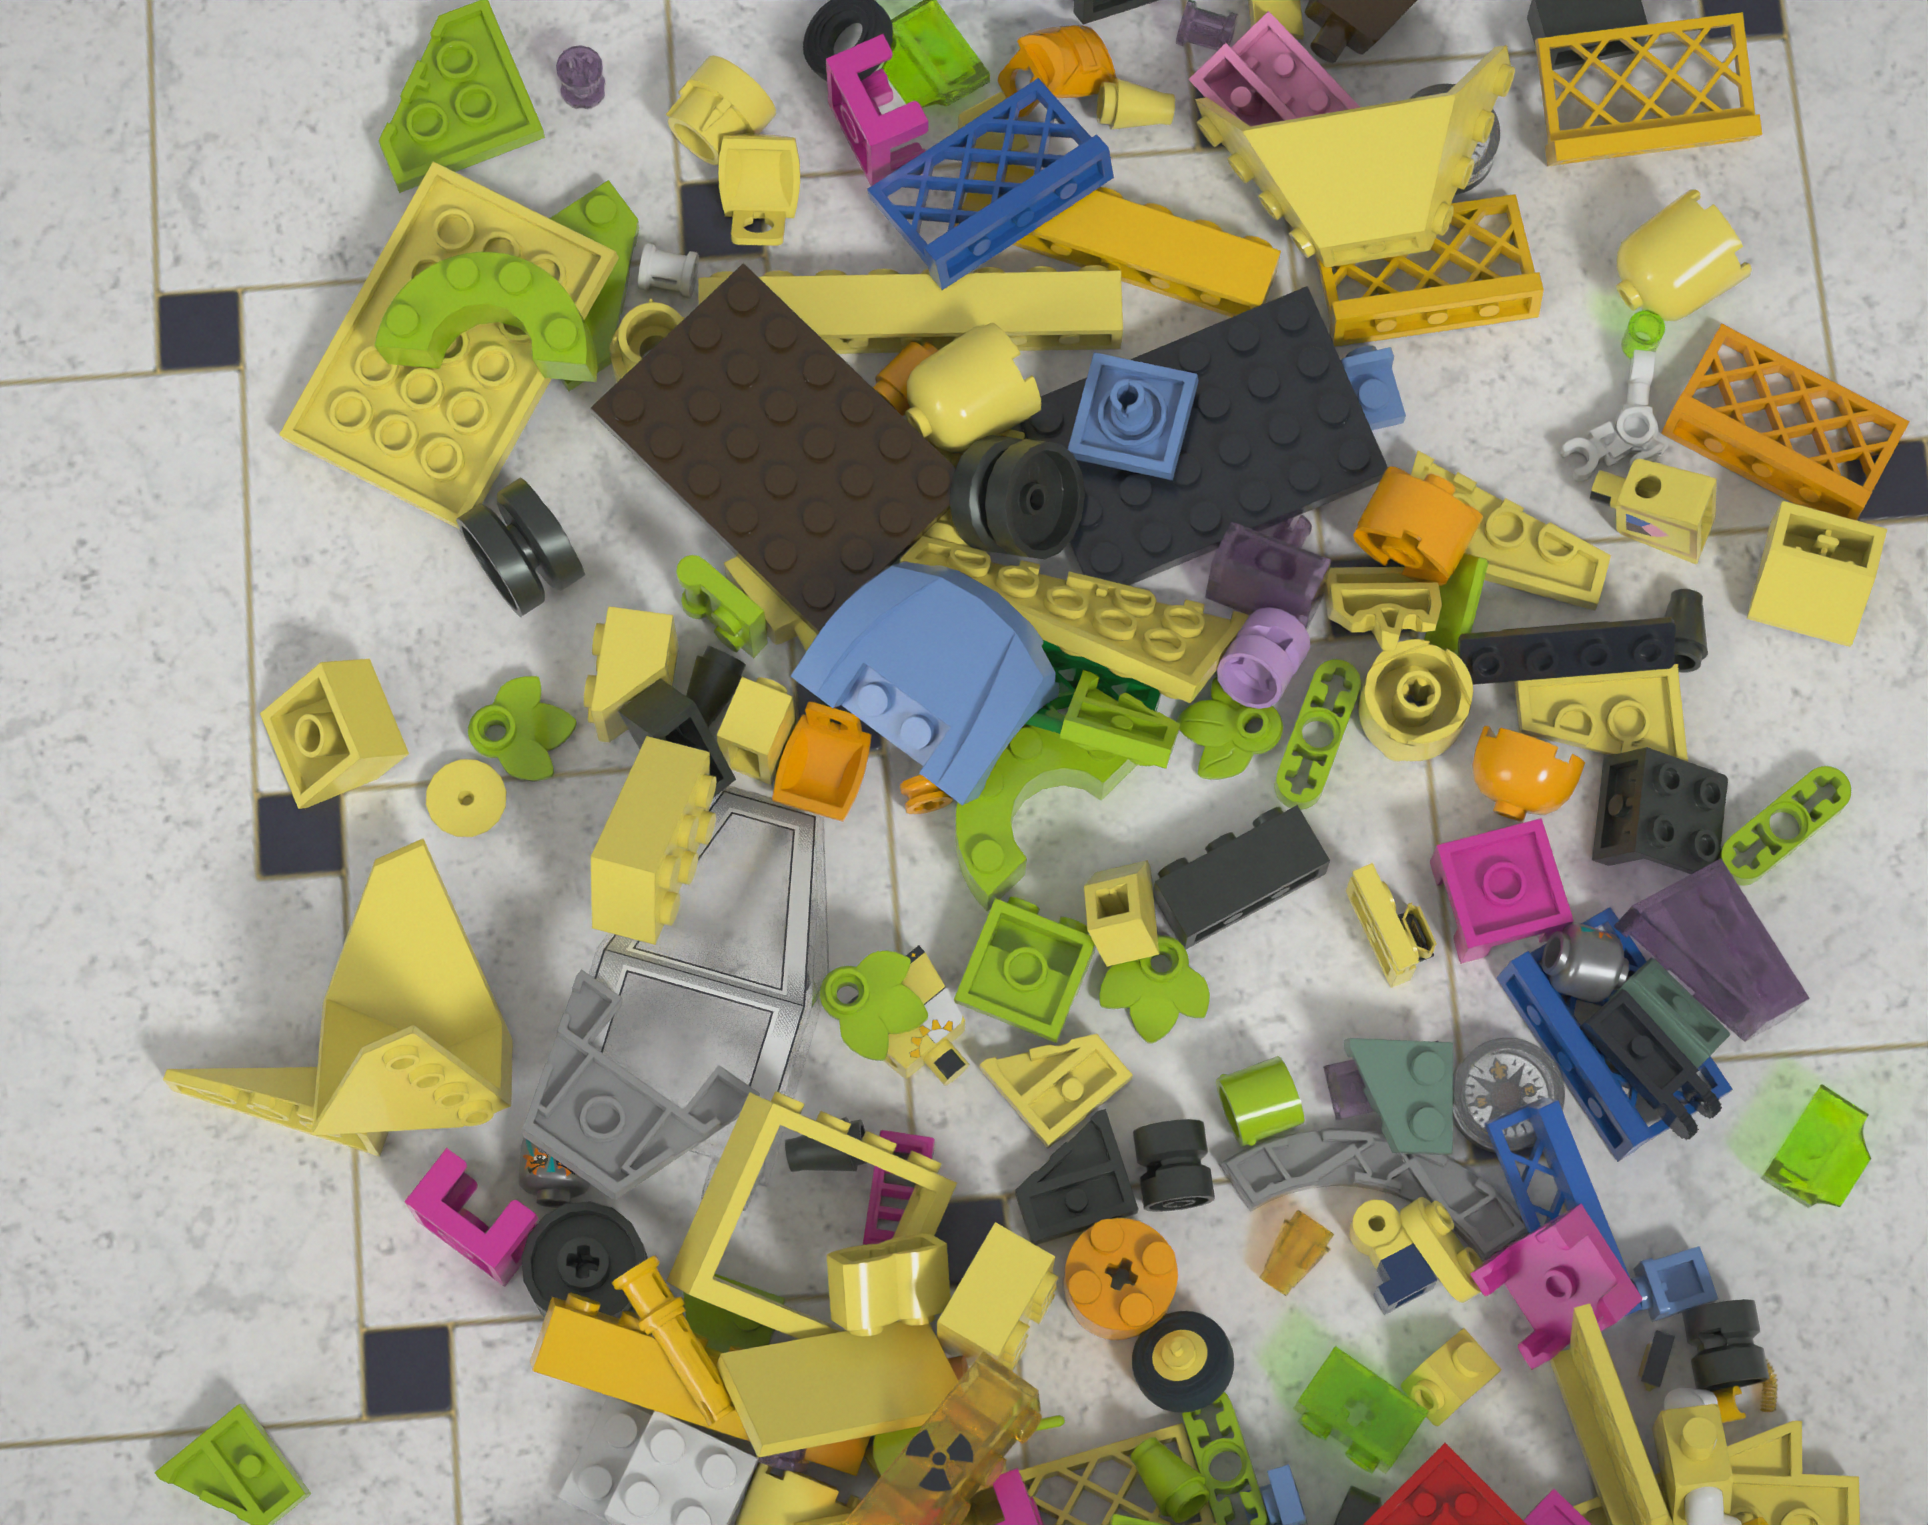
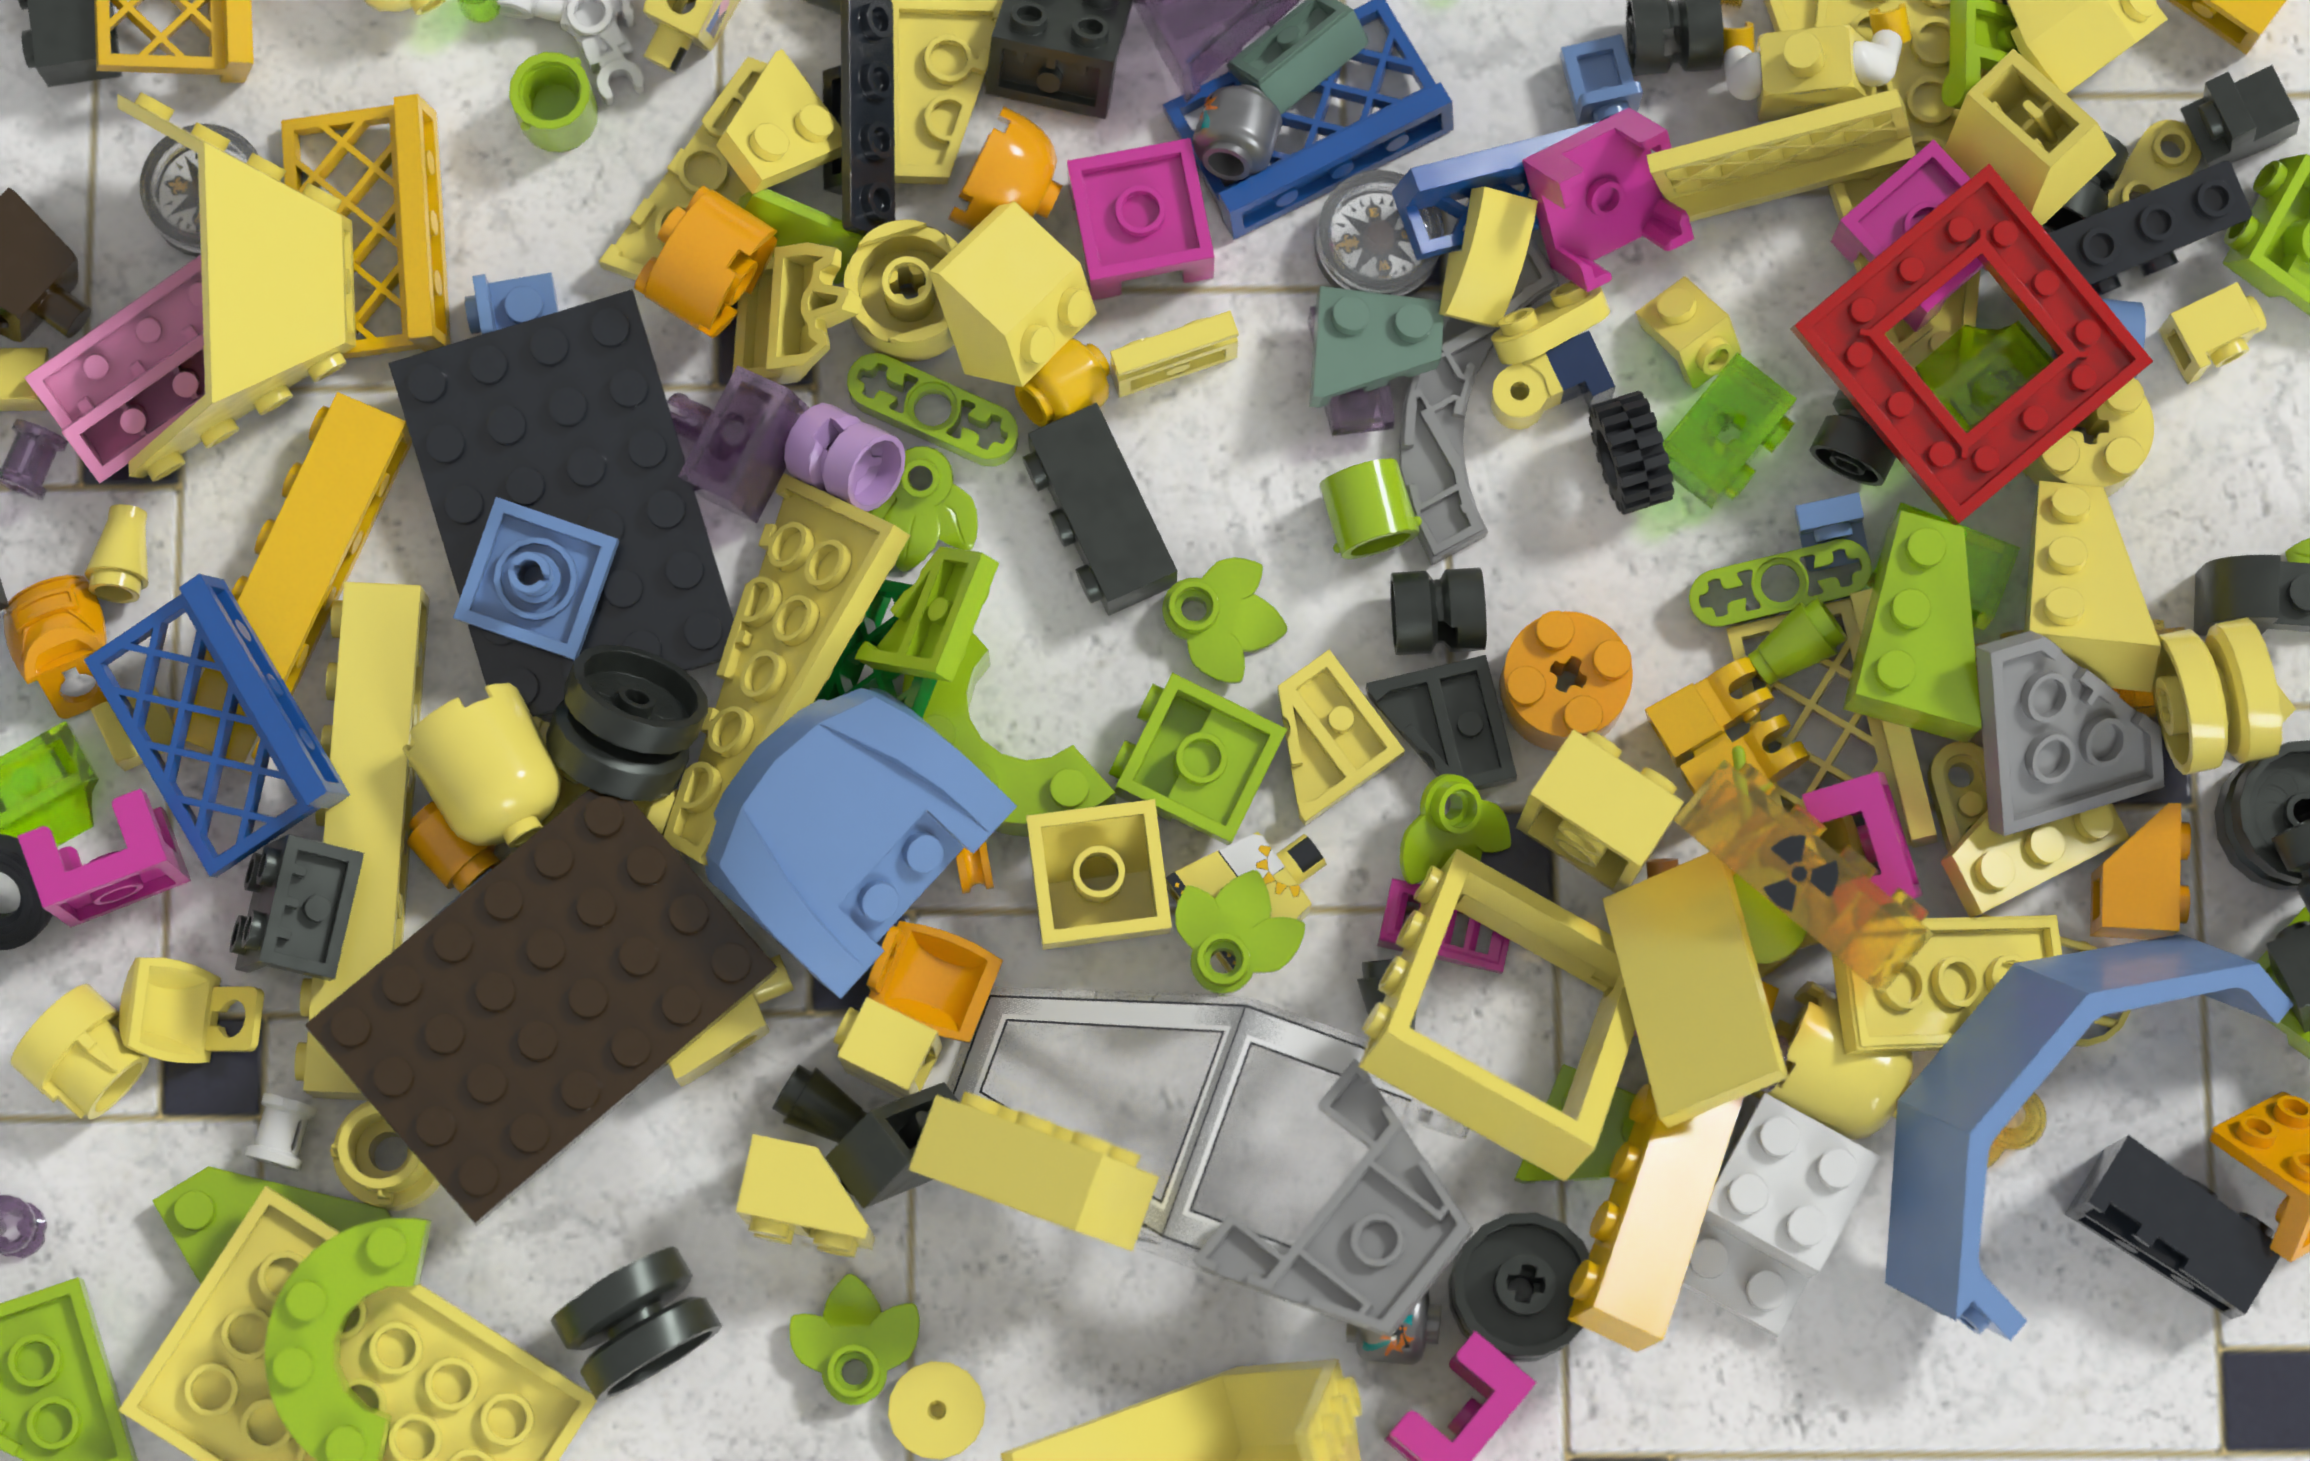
camera: 85 degrees left, 5 degrees up
(663, 1317) = (1612, 1183): yellow pin -> none
(711, 595) = (742, 1071): lime plate -> none
(844, 260) = (297, 907): none -> pearl dark grey bracket
(888, 1283) = (1575, 929): light yellow brick -> none
(917, 888) = (1098, 874): none -> light yellow slope
(976, 1194) = (1469, 826): none -> lime plate
(1085, 1394) = (1695, 723): none -> yellow legs
(1122, 913) = (1137, 642): light yellow slope -> none
(1183, 1362) = (1664, 618): black wheel -> none
(1295, 1252) = (1541, 486): clear yellow cone -> none
(1329, 1322) = (1631, 452): none -> black tyre
(1349, 834) = (1066, 384): none -> yellow head
(1414, 777) = (1011, 296): none -> light yellow slope
(1417, 926) = (1176, 316): light yellow piece -> none
(1492, 1186) = (1492, 256): none -> light yellow slope
(1543, 577) = (780, 129): none -> light yellow wing
(1552, 402) = (553, 101): none -> lime piece
(1650, 1062) = (1354, 75): black hinge -> none
(1655, 1360) = (1682, 110): black piece -> none

